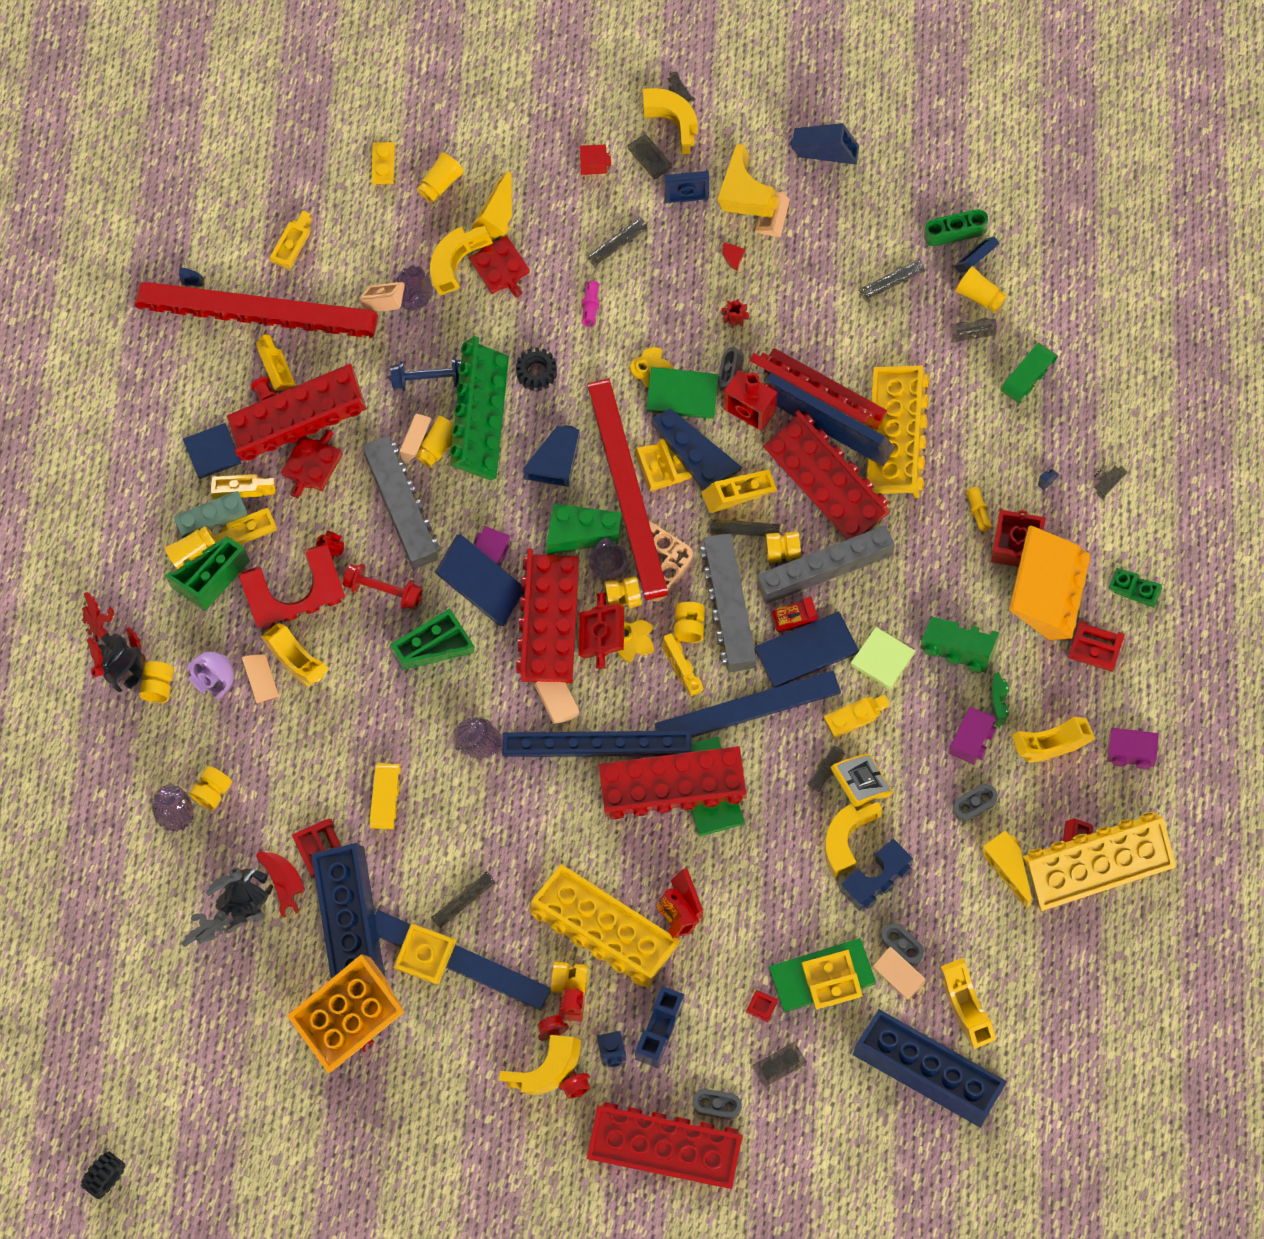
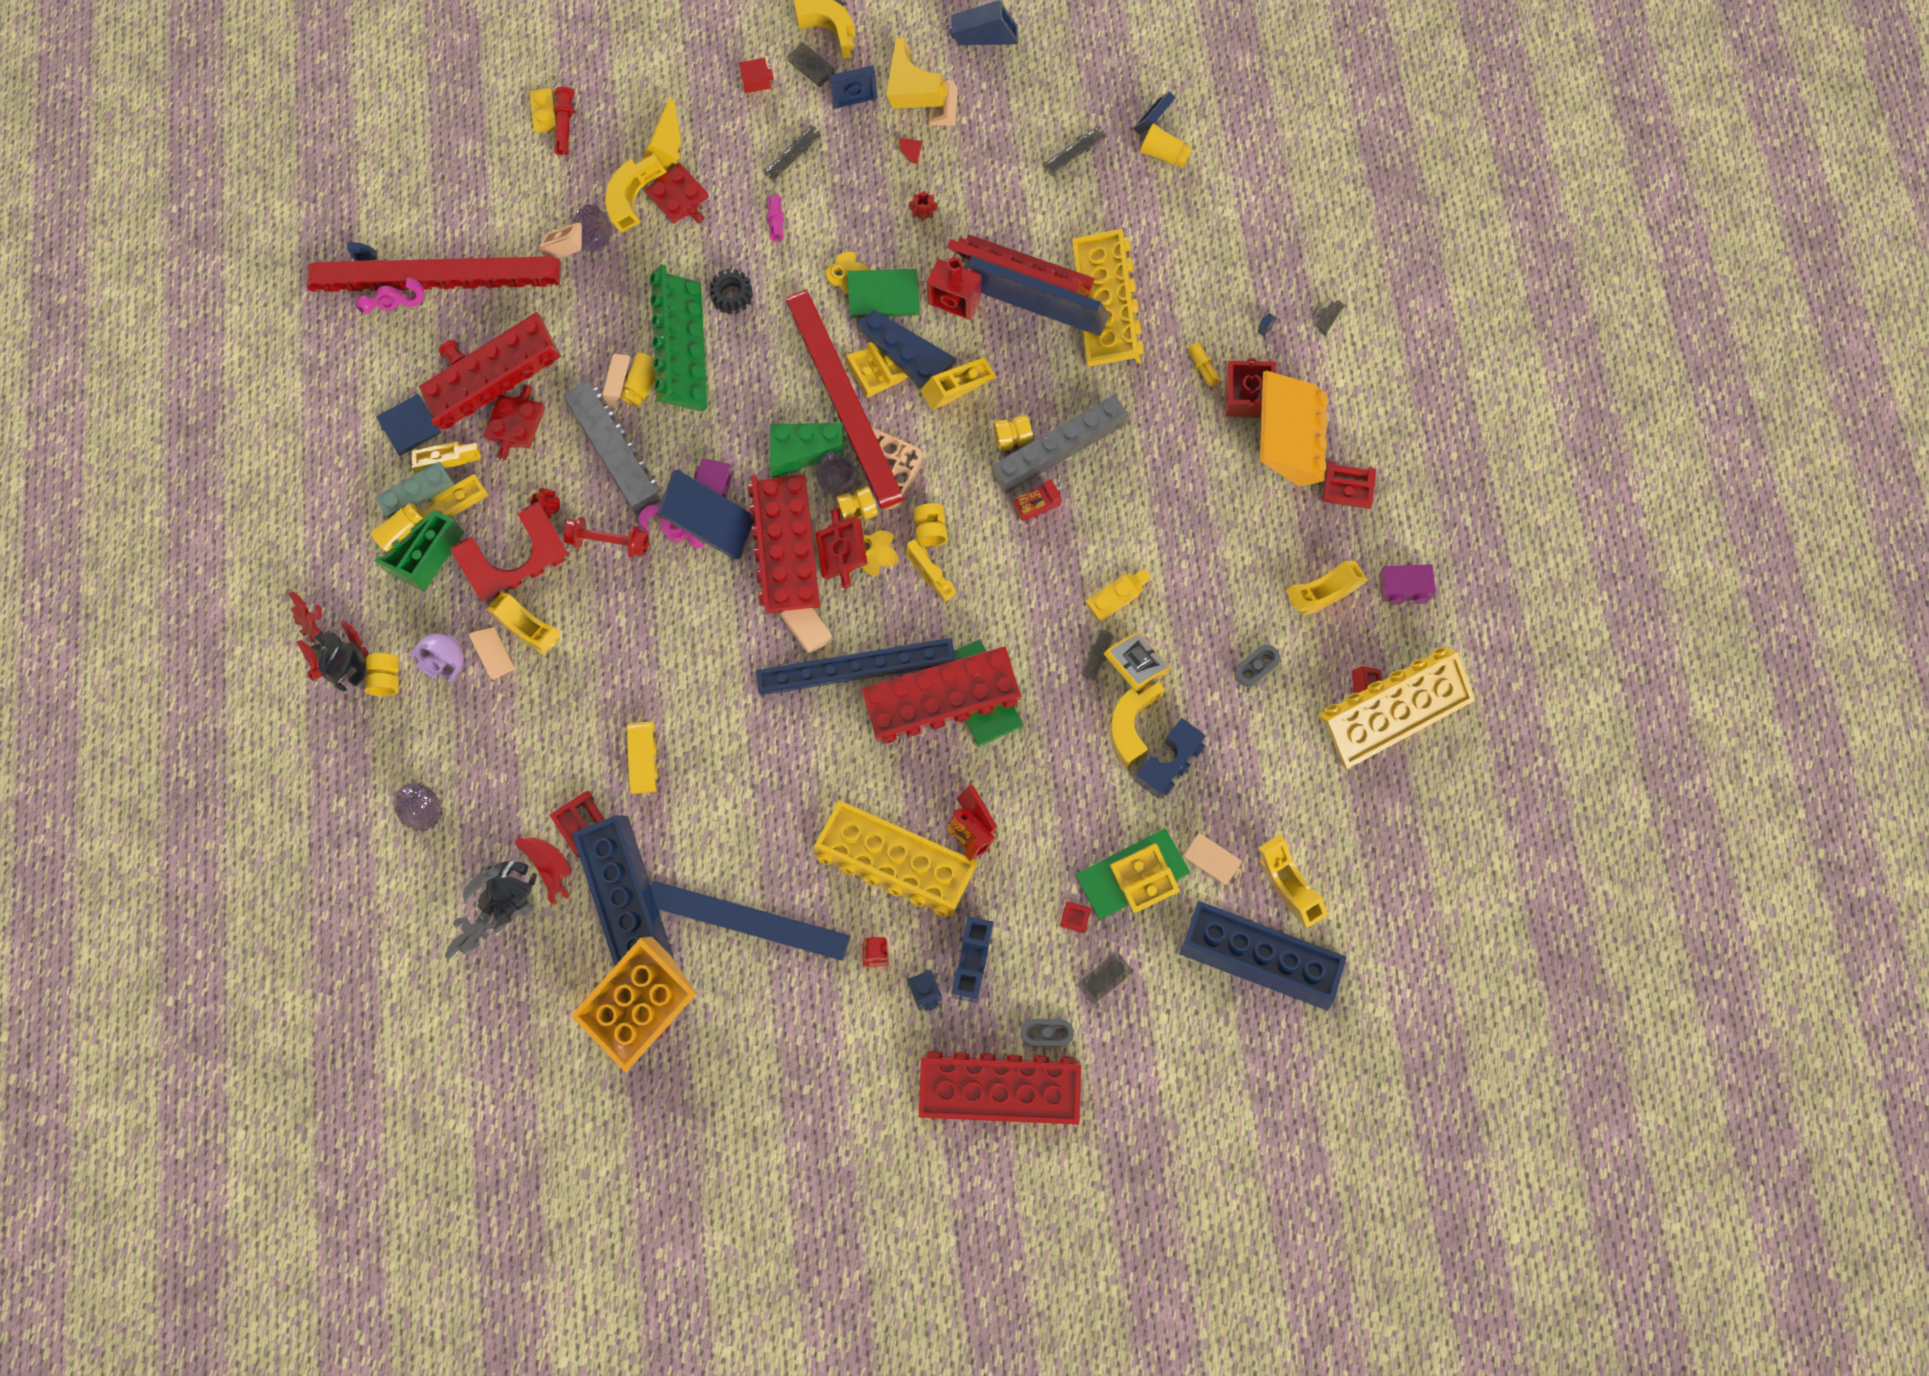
camera: 10 degrees left, 5 degrees up
(103, 1175) = (395, 1227): black tyre -> none
(210, 326) = (389, 298): none -> dark pink piece
(210, 788) = (455, 779): yellow wheel -> none
(275, 364) = (461, 326): yellow hinge -> none
(292, 241) = (461, 200): yellow hinge -> none
(399, 376) = (591, 319): dark blue piece -> none
(402, 168) = (563, 111): none -> red pin
(425, 954) = (710, 921): yellow tile -> none
(432, 642) = (667, 587): green wedge -> none
(440, 177) = (602, 114): yellow plant -> none
(444, 590) = (671, 531): none -> dark pink piece
(455, 906) = (742, 855): clear smoke pin -> none
(477, 738) = (730, 680): hair -> none
(555, 457) = (764, 378): dark blue slope -> none
(557, 1067) = (872, 1022): yellow arch -> none
(569, 977) = (859, 919): yellow wheel -> none
(576, 1084) = (857, 980): red piece -> none
(729, 603) = (968, 498): flat silver brick -> none
(730, 364) = (927, 256): dark grey plate -> none
(742, 527) = (968, 420): clear smoke pin -> none
(754, 705) = (1011, 601): dark blue tile -> none
(806, 649) = (1055, 535): dark blue tile -> none
(827, 477) = (1045, 355): red bracket -> none
(882, 658) = (1134, 531): yellowish green tile -> none
(903, 944) = (1211, 826): dark grey plate -> none
(959, 644) = (1211, 504): green wedge -> none
(963, 220) = (1116, 93): green beam -> none
(972, 736) = (1242, 596): magenta brick -> none
(973, 330) = (1165, 187): clear smoke plate -> none
(998, 695) = (1259, 549): green slope -> none
(1007, 860) = (1303, 722): yellow slope -> none
(1028, 372) = (1228, 219): green beam -> none
(1137, 589) = (1370, 419): green slope -> none

